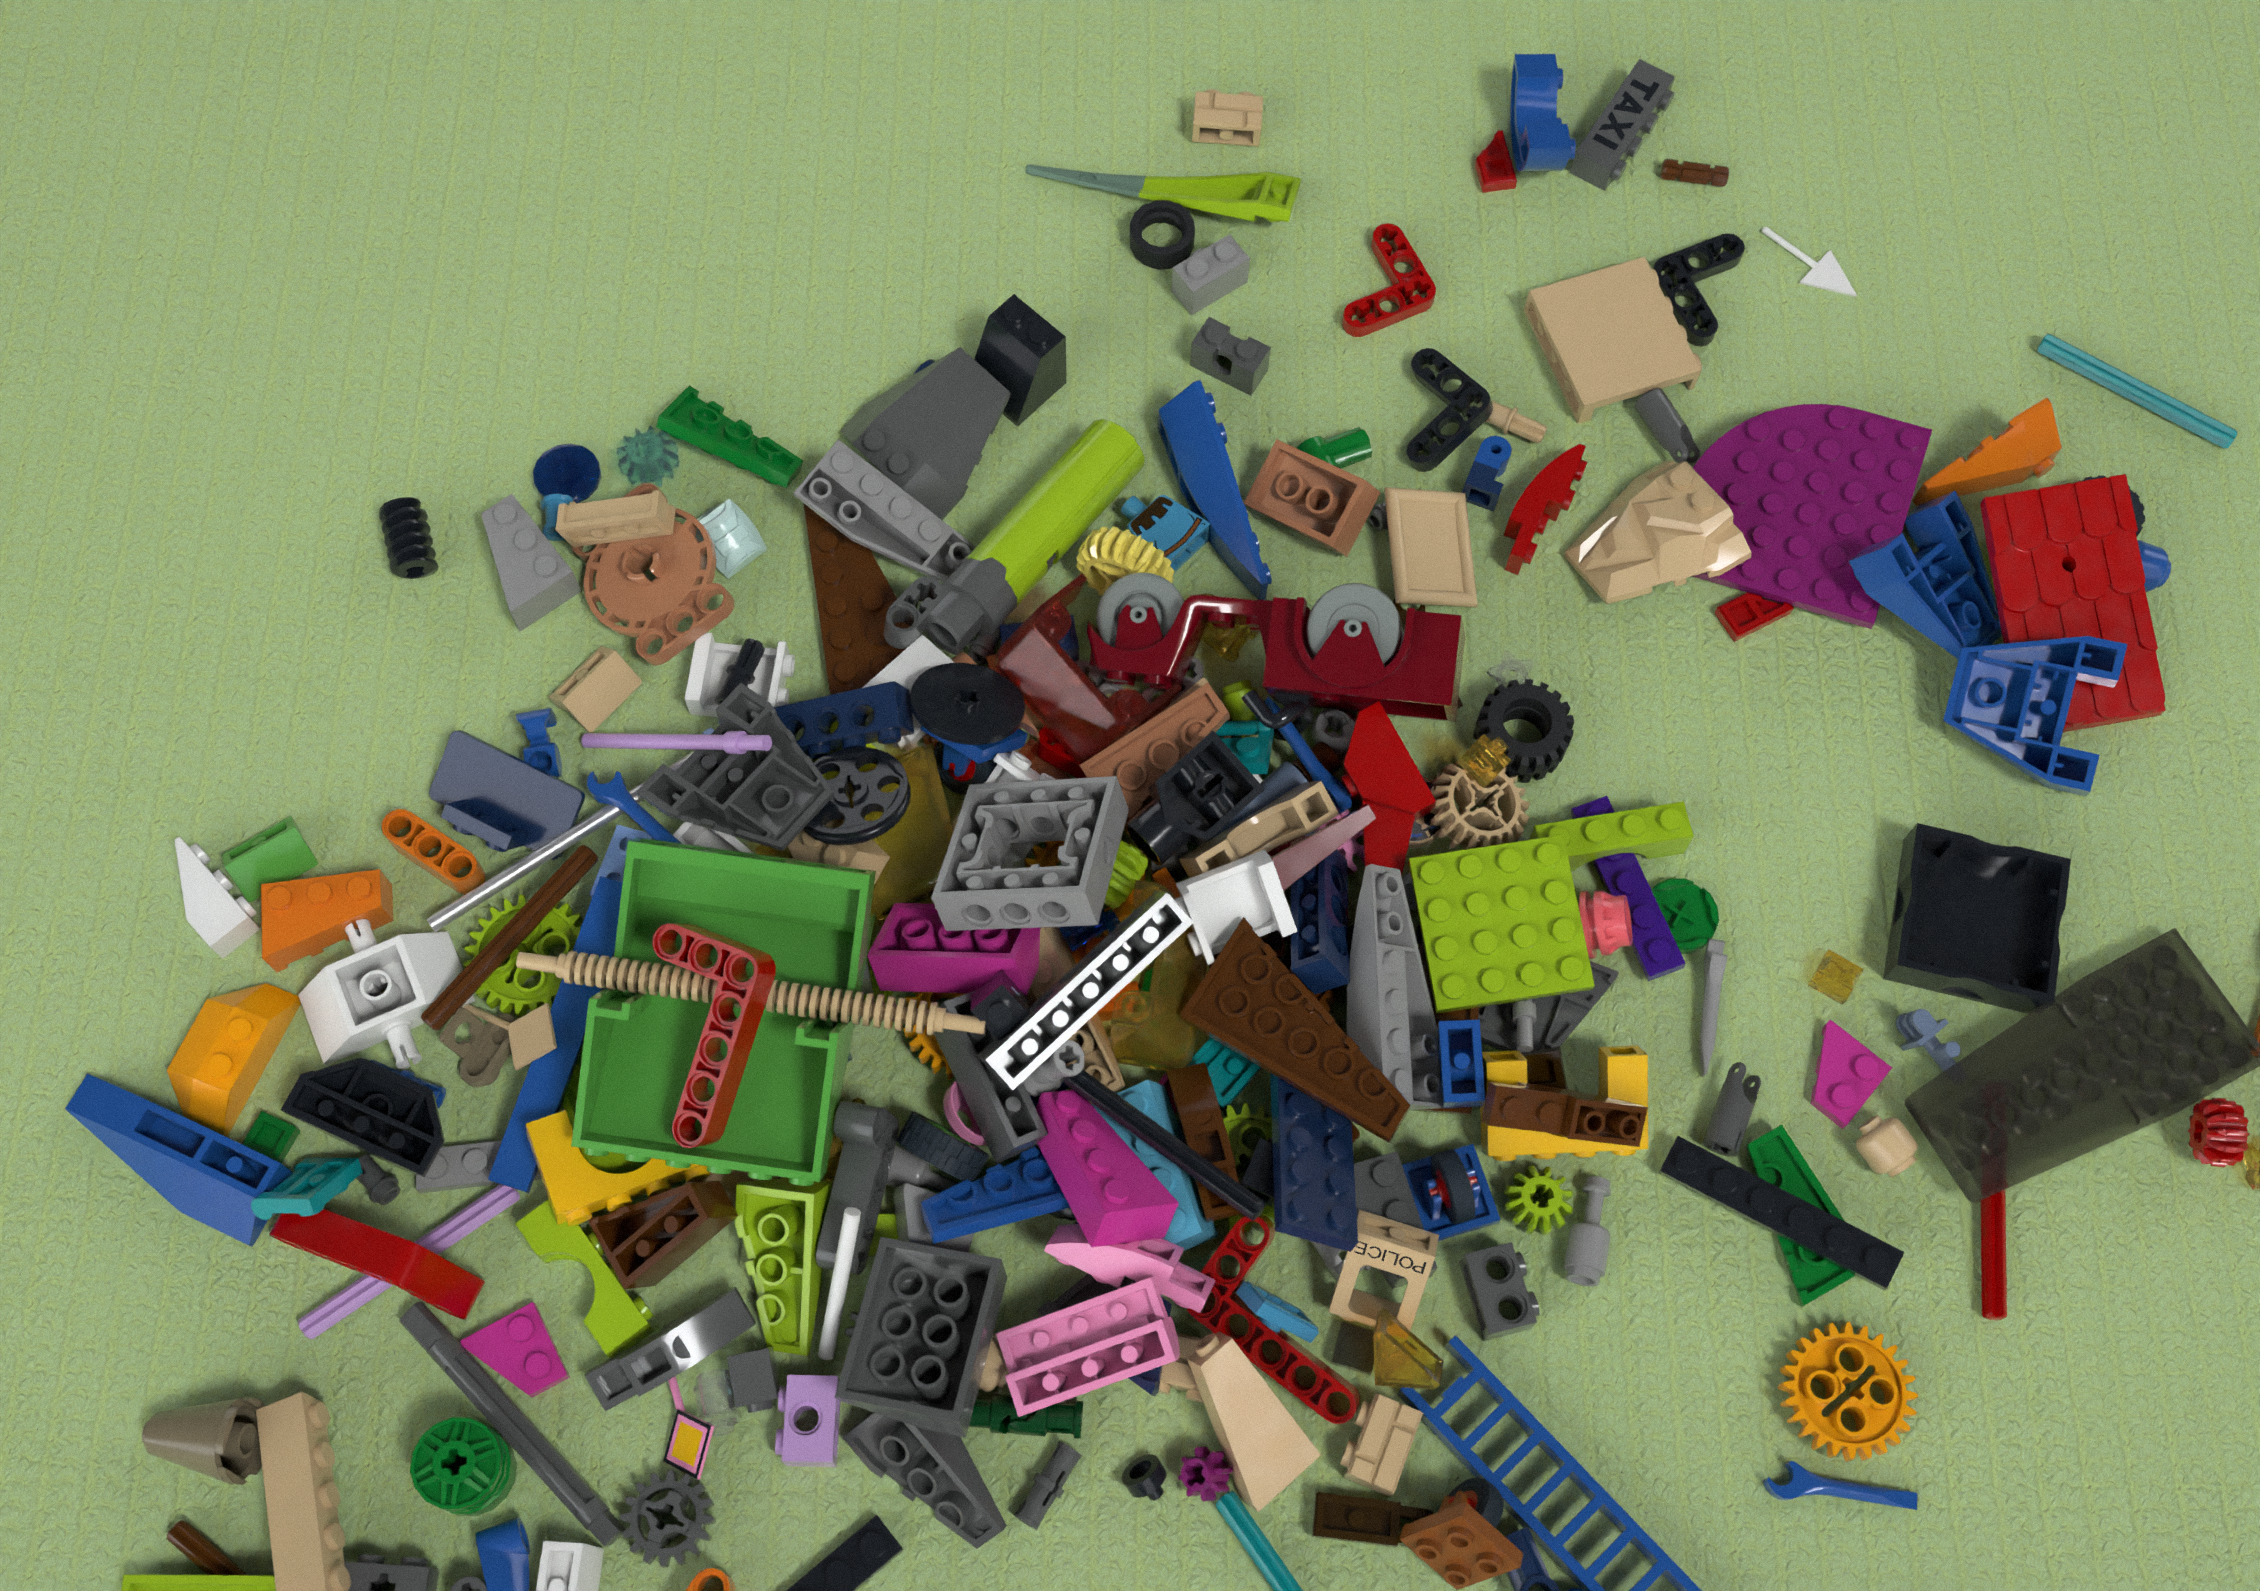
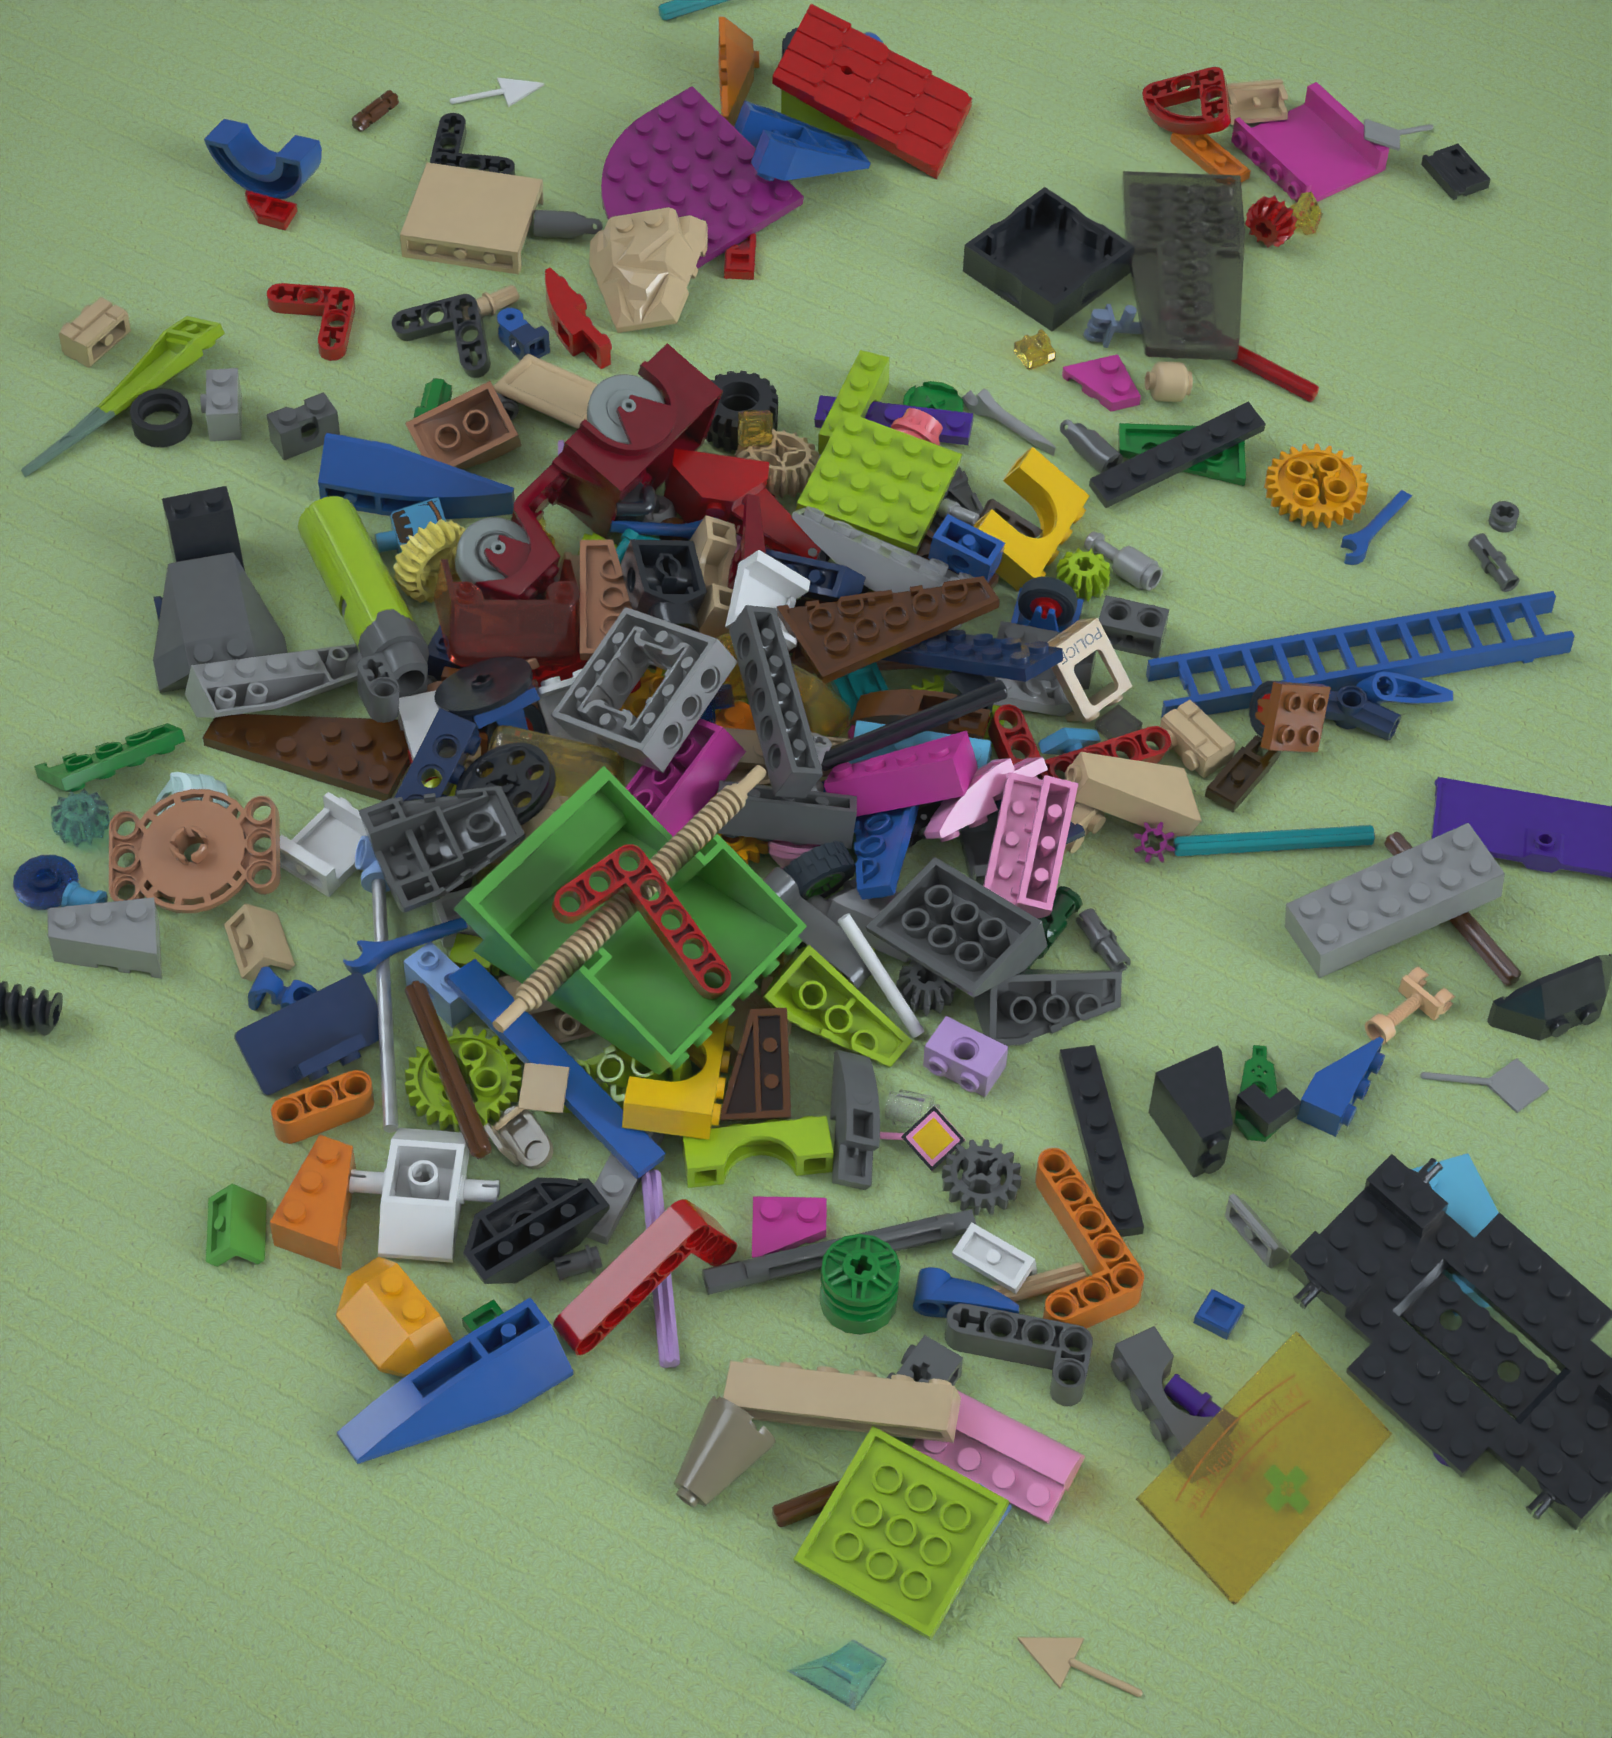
camera: 60 degrees left, 15 degrees down
(209, 905) = (249, 1281): white slope -> none
(308, 1188) = (570, 1284): teal plate -> none
(615, 519) = (134, 845): tan container -> none
(731, 742) = (407, 834): lavender bar -> none
(742, 669) = (329, 838): black axle -> none
(754, 1379) = (911, 1072): dark grey brick -> none
(1000, 1004) = (746, 754): black brick -> none
(1145, 1477) = (1133, 879): black tile -> none
(1402, 1357) = (1144, 696): clear yellow slope -> none
(1564, 1113) = (1042, 510): reddish brown slope -> none
(1622, 124) = (299, 115): dark grey brick -> none
(2019, 699) = (917, 155): blue wedge -> none

